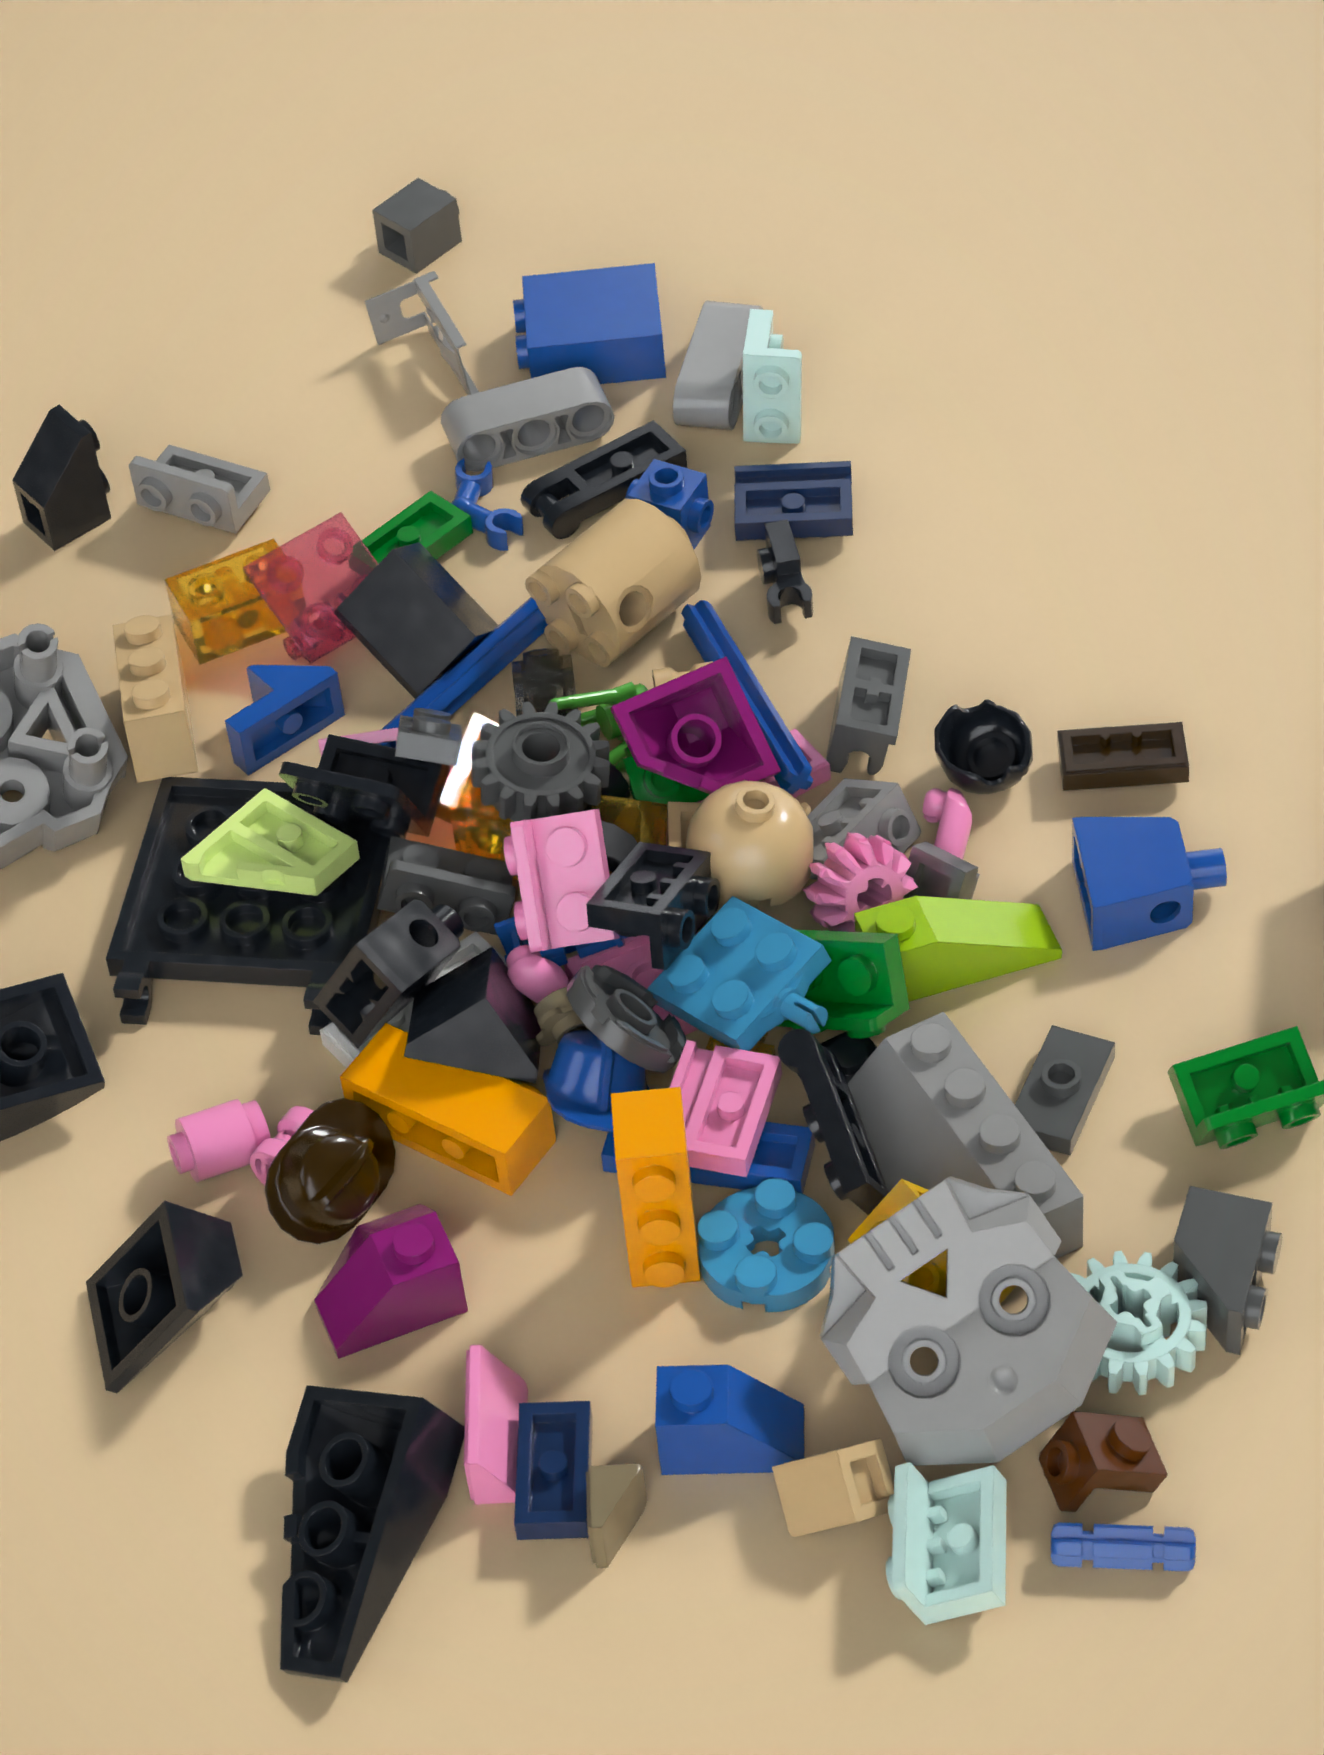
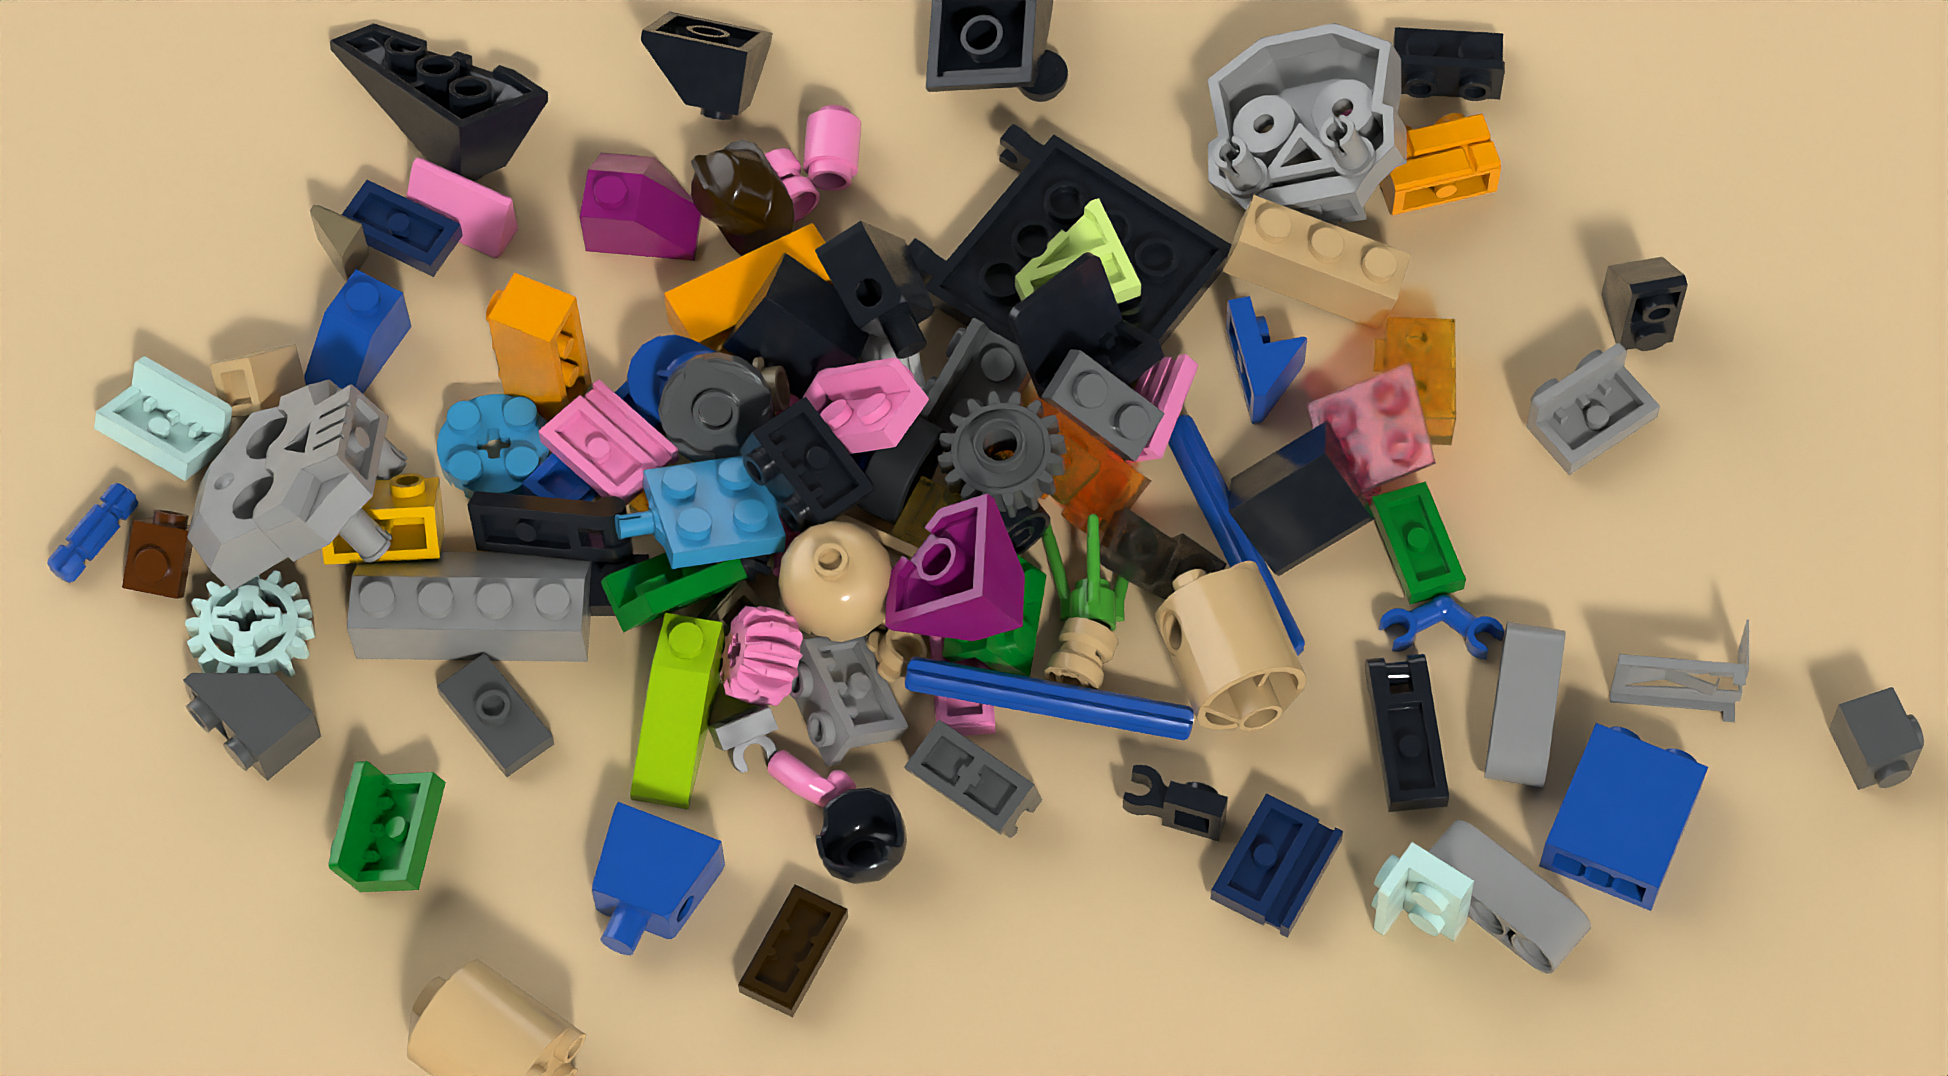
camera: 115 degrees right, 15 degrees up
(678, 494) = (1317, 749): blue brick -> none

